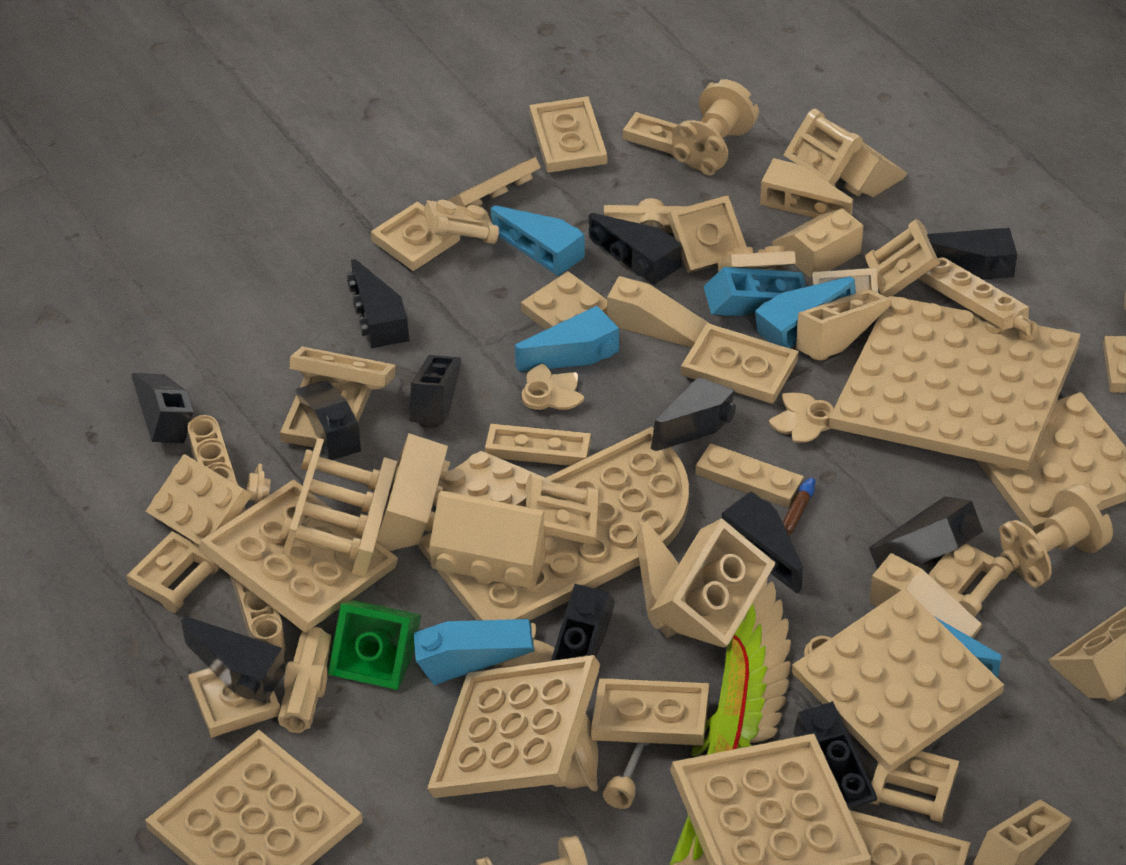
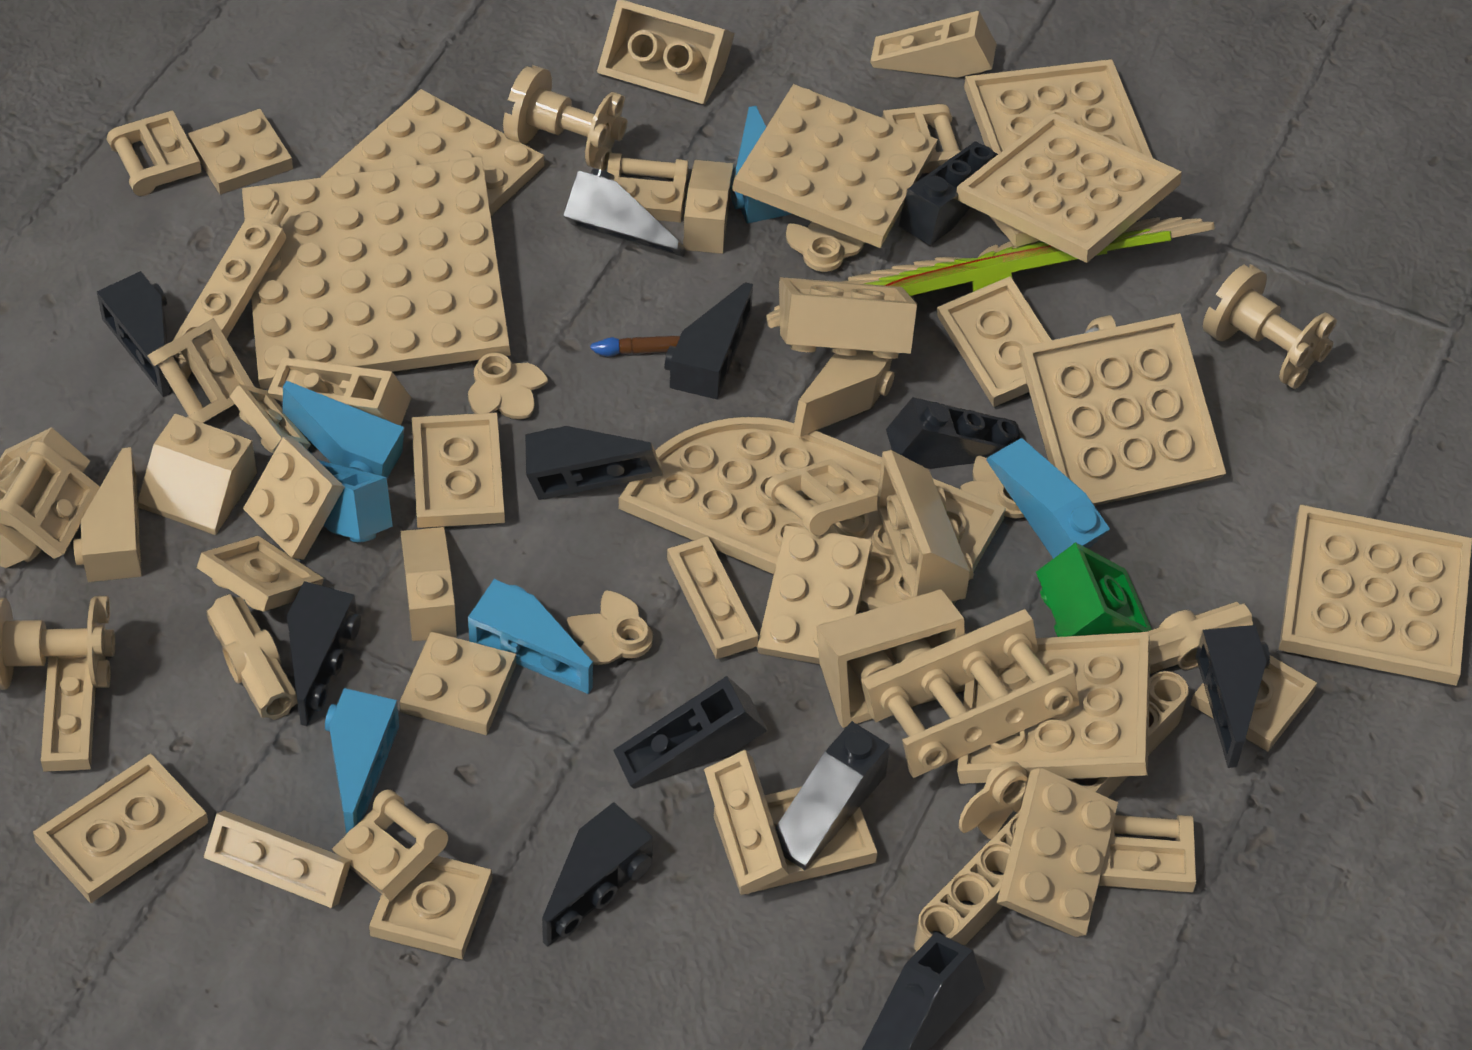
camera: 125 degrees left, 5 degrees up
(749, 475) = (620, 393): tan plate -> none

